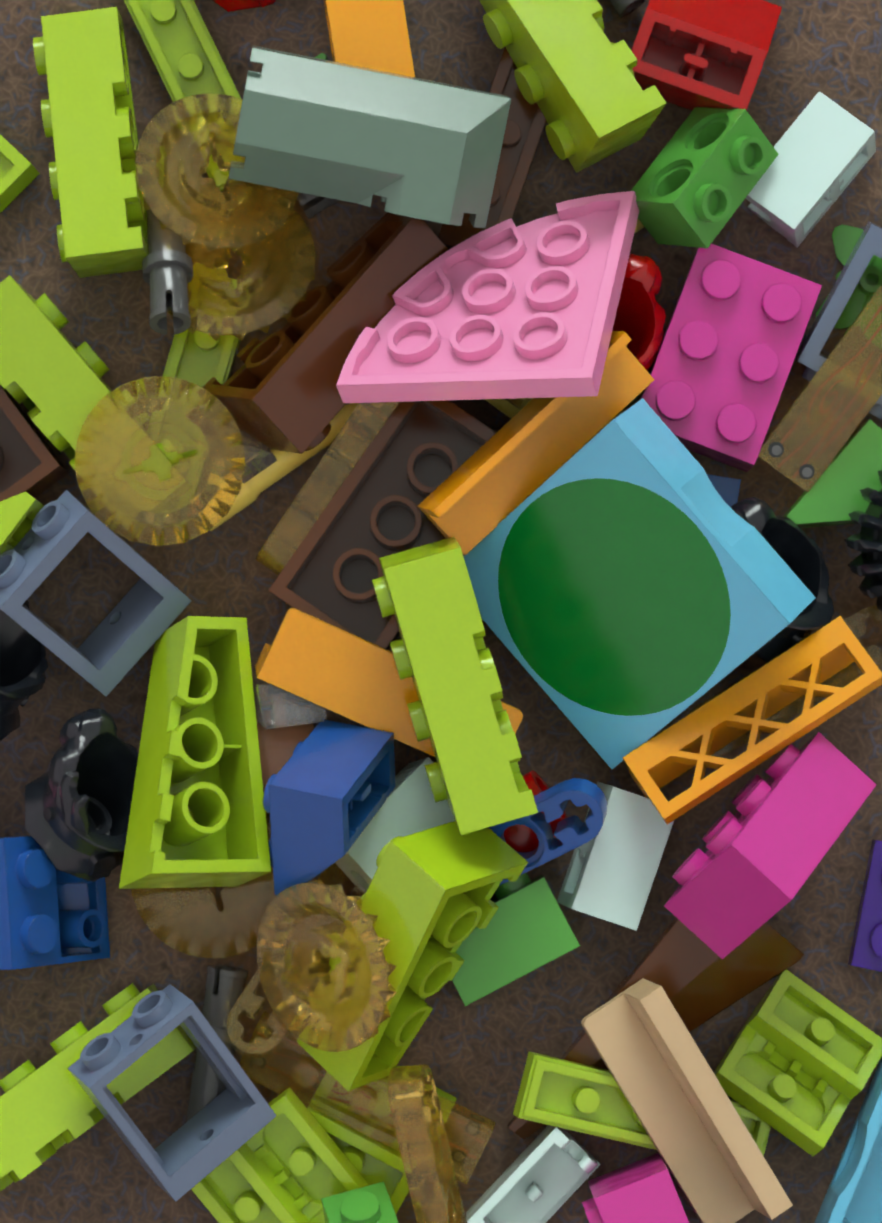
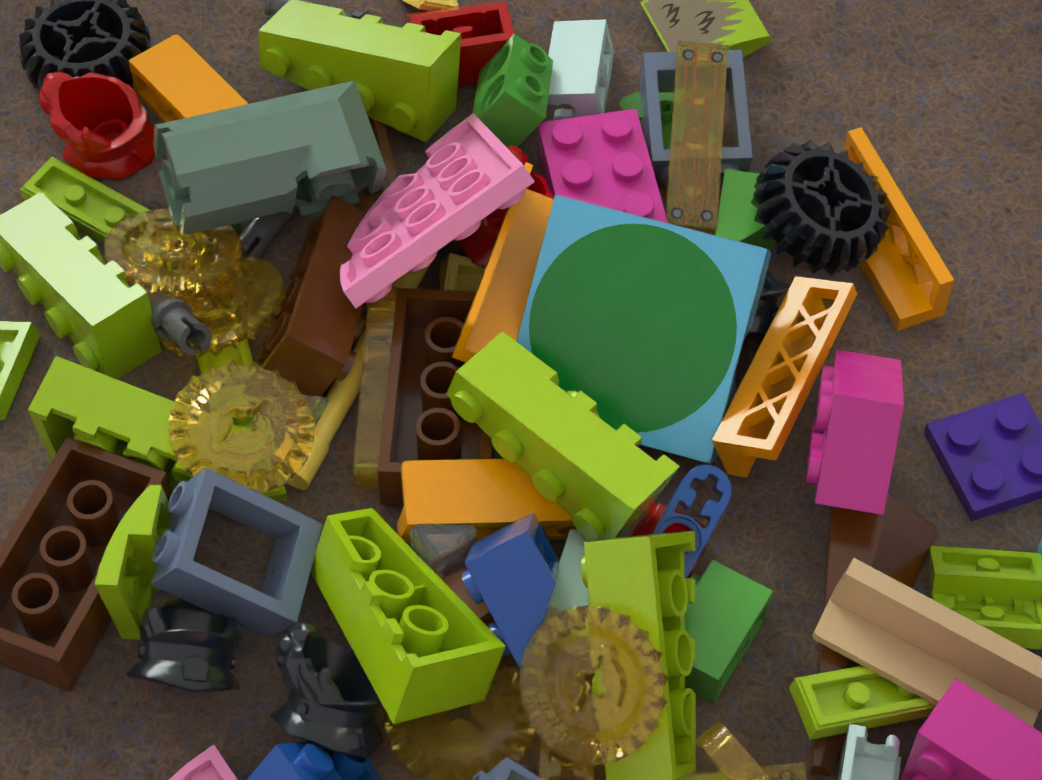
camera: 30 degrees left, 30 degrees down
(618, 866) = (757, 529): light aqua hinge -> none

